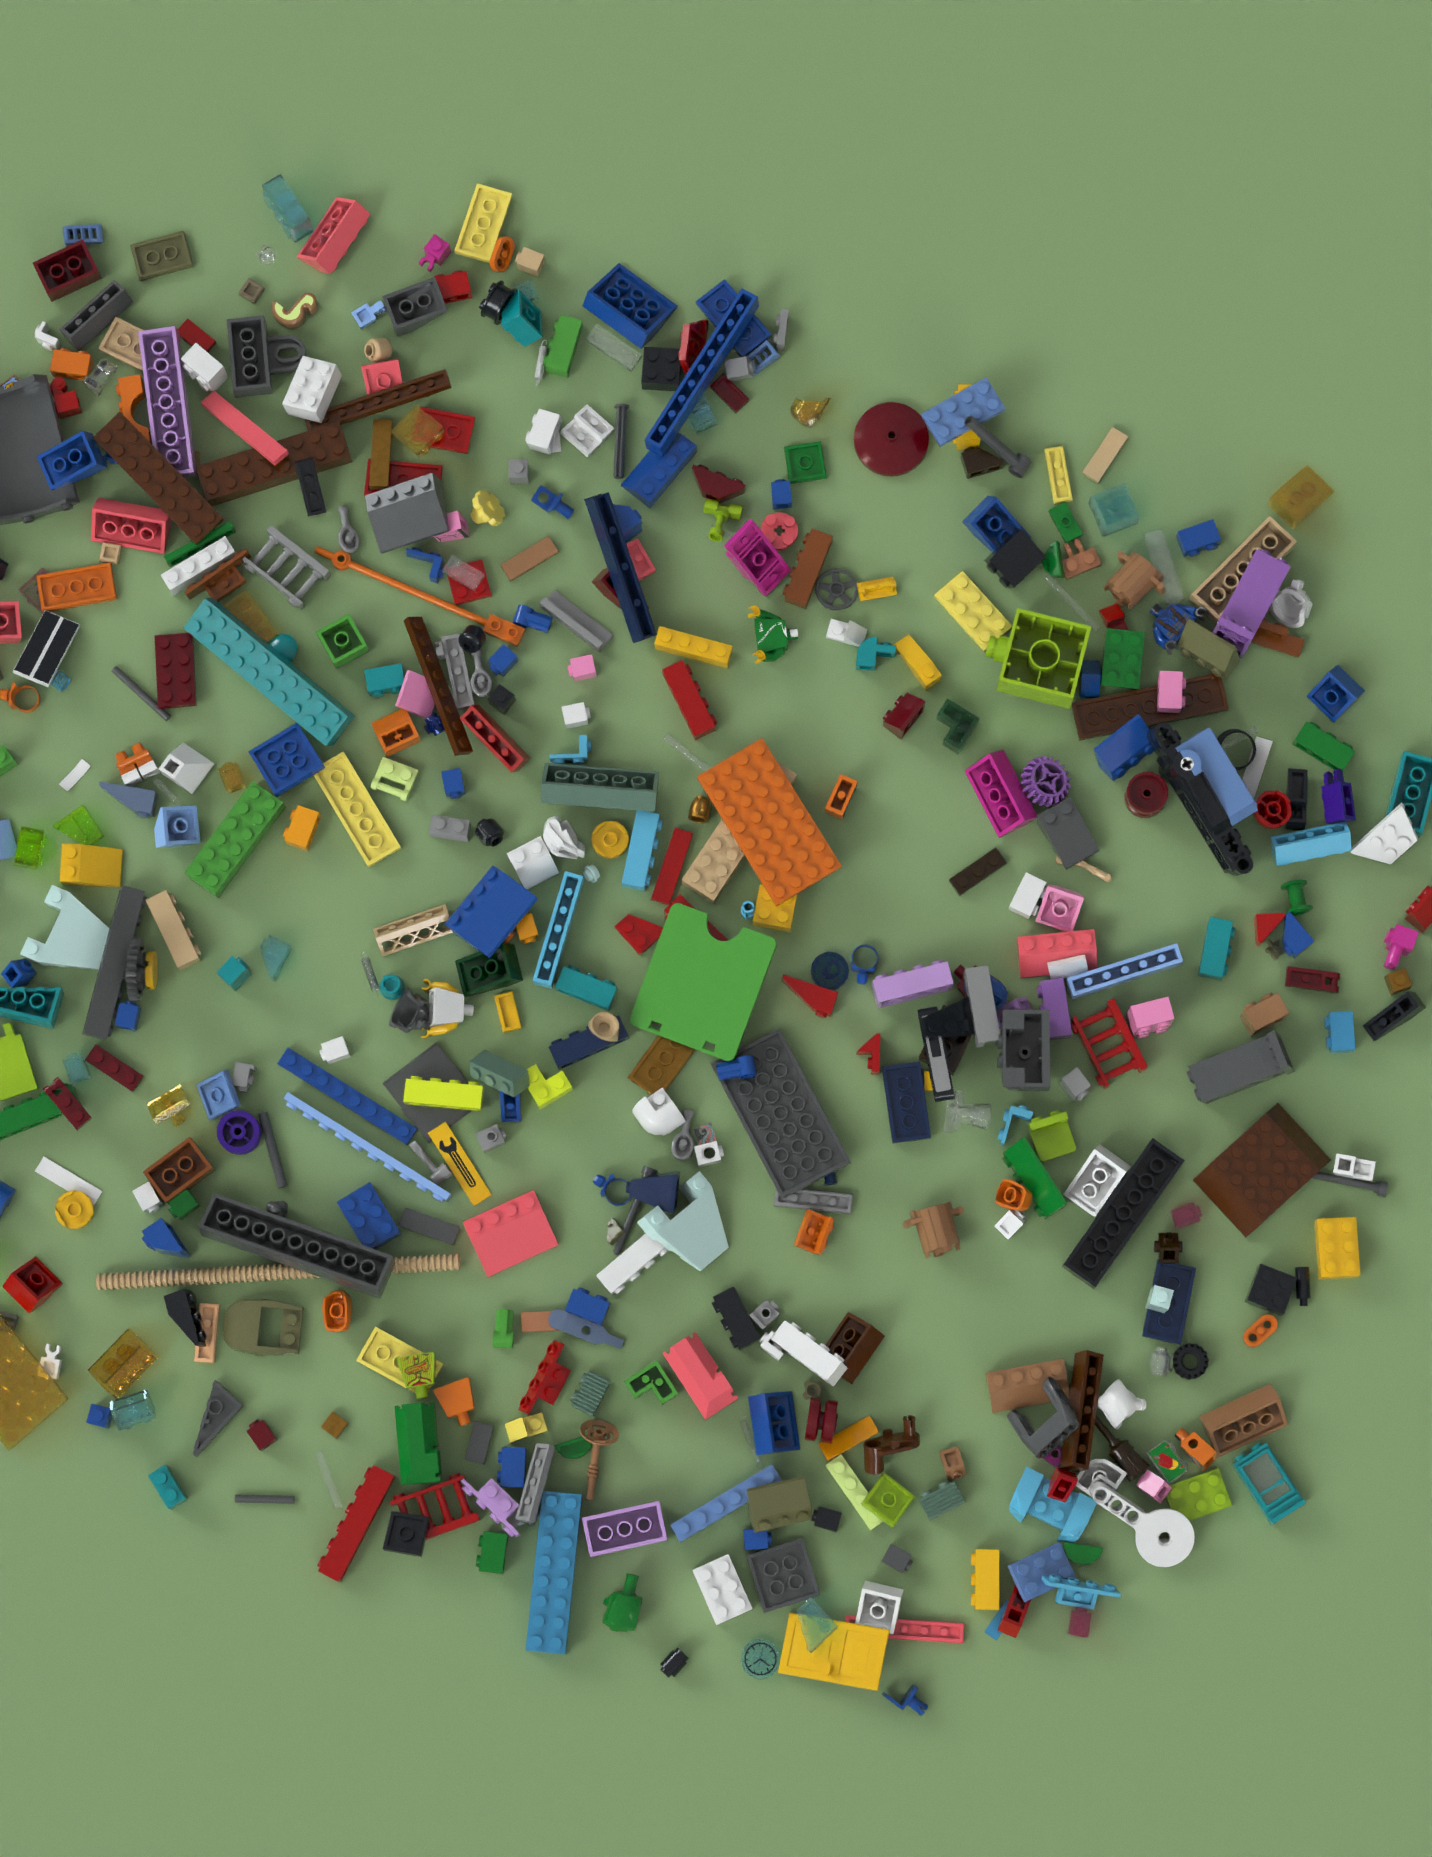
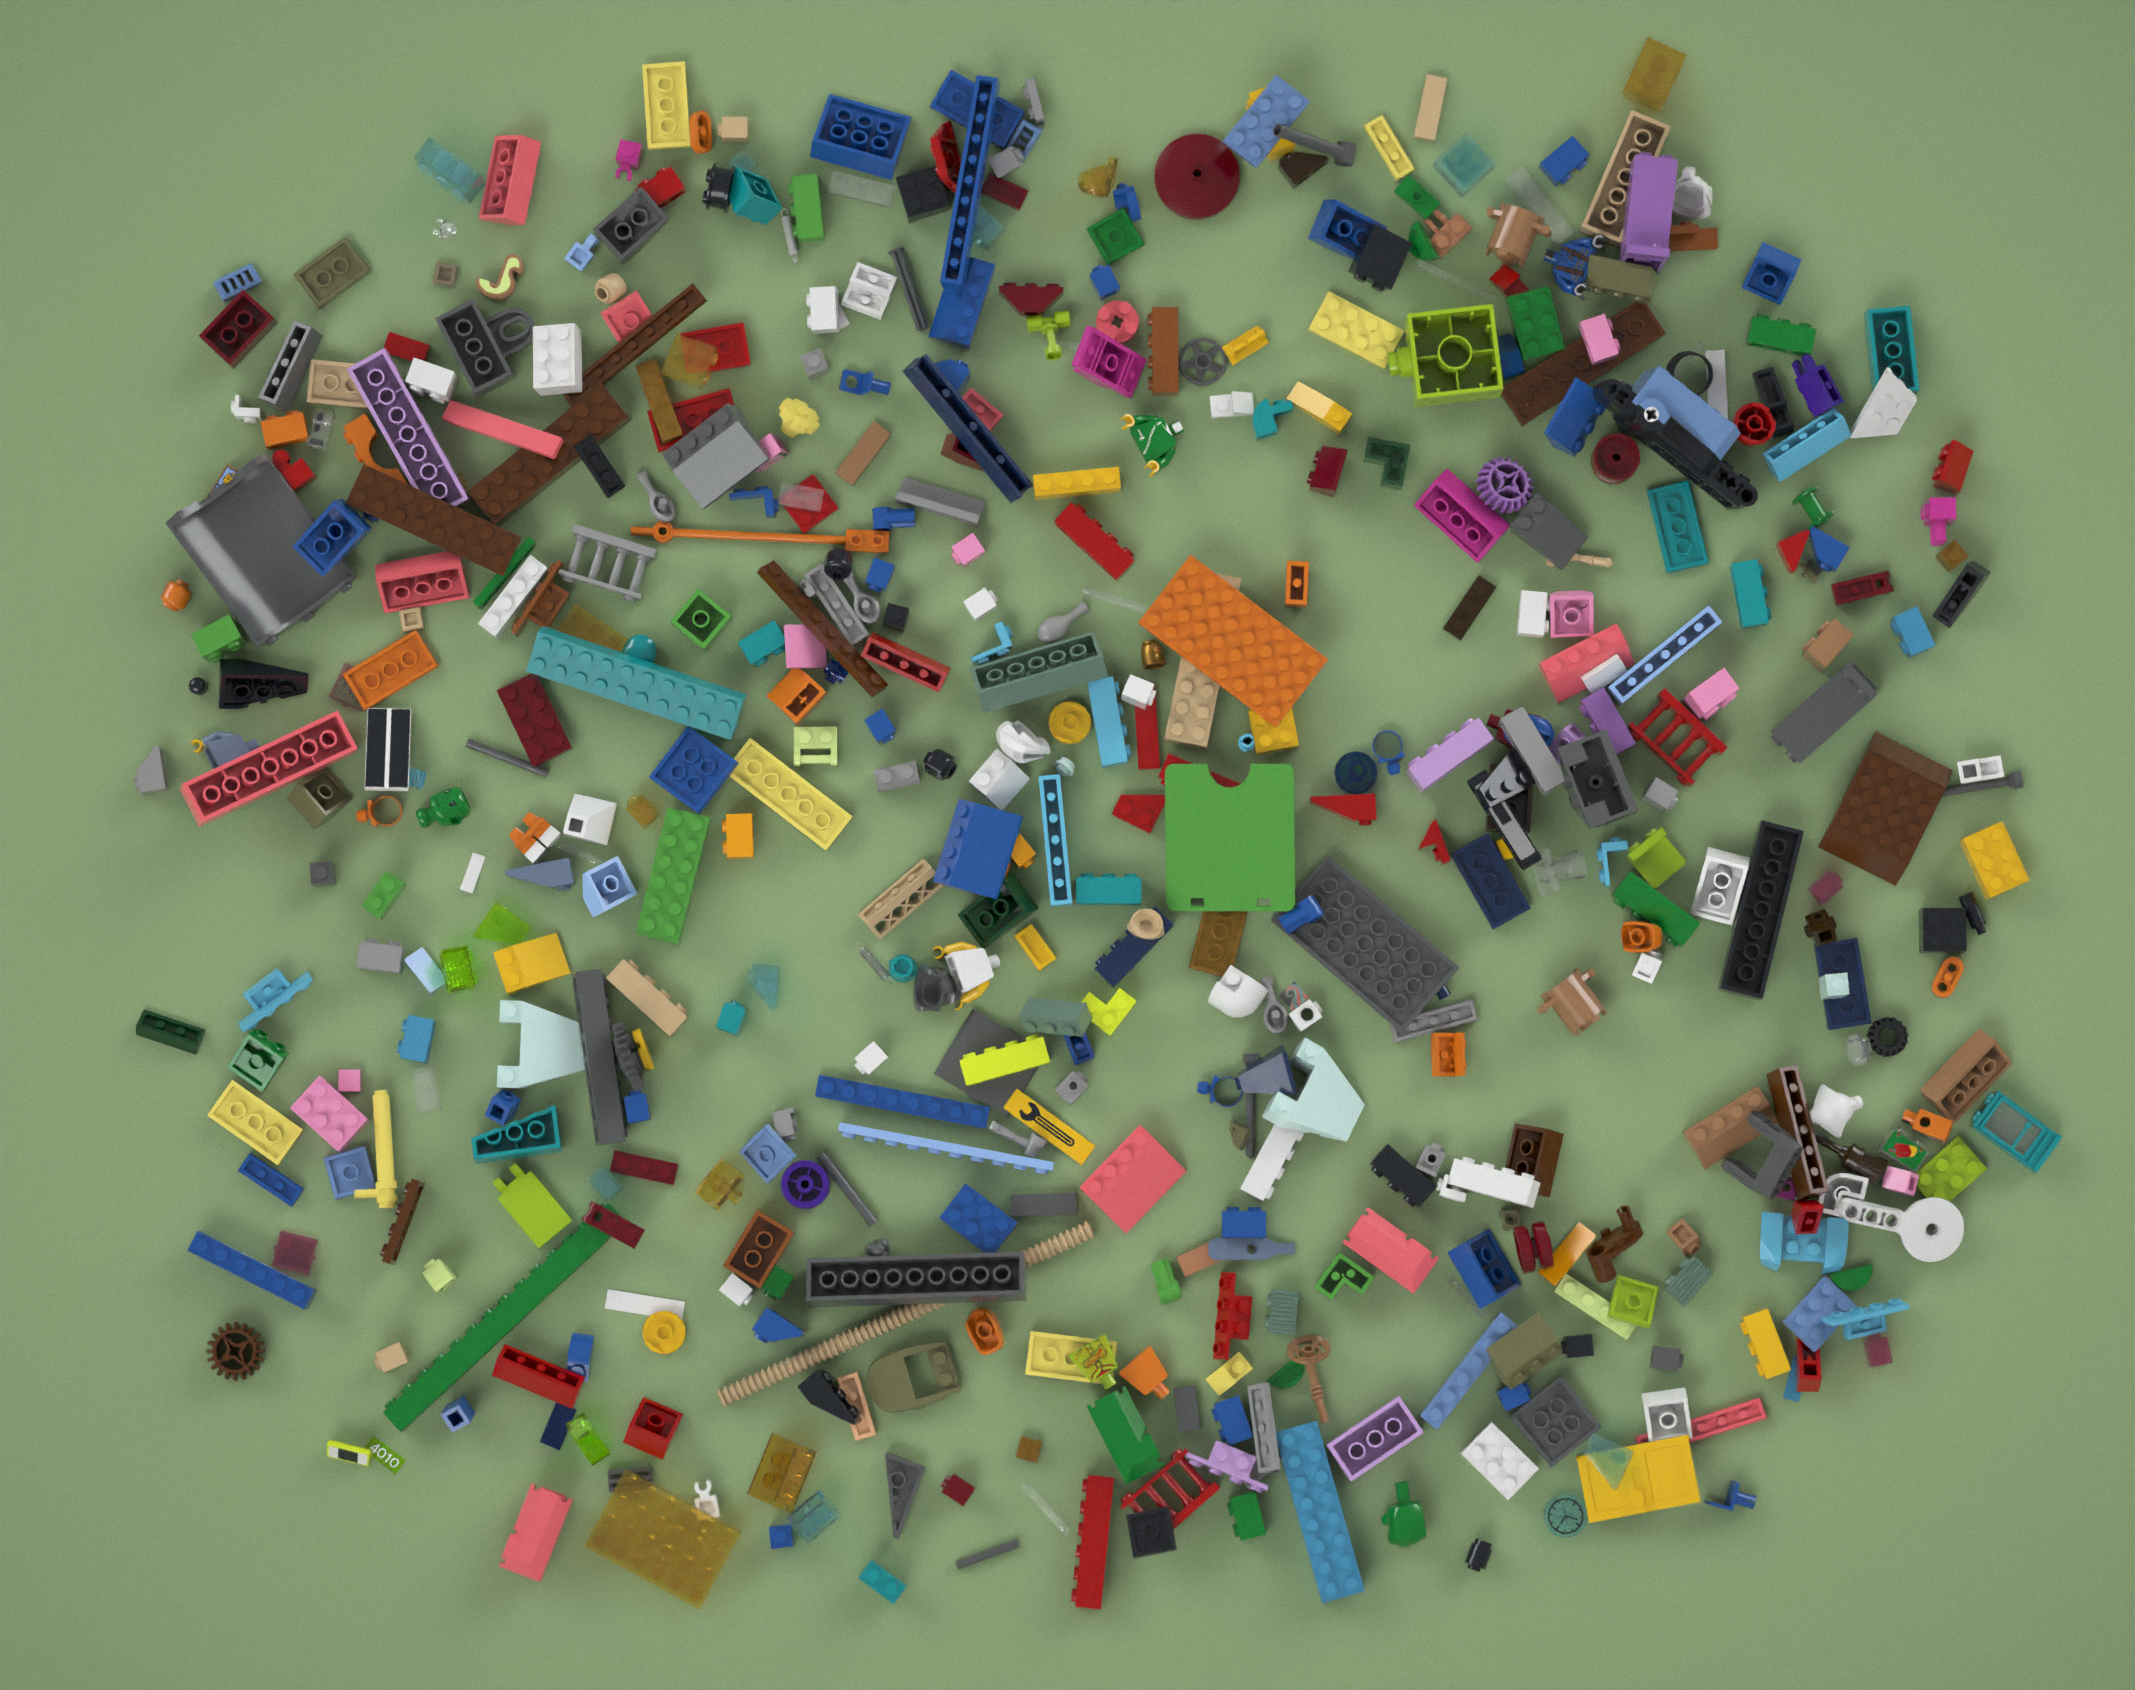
camera: 25 degrees left, 5 degrees up
(74, 714) = (446, 808): none -> green piece
(629, 757) = (1055, 627): none -> light grey piece
(674, 834) = (1138, 692): none -> white brick
(825, 434) = (1126, 197): none -> blue piece
(1177, 871) = (1677, 527): none -> teal tile

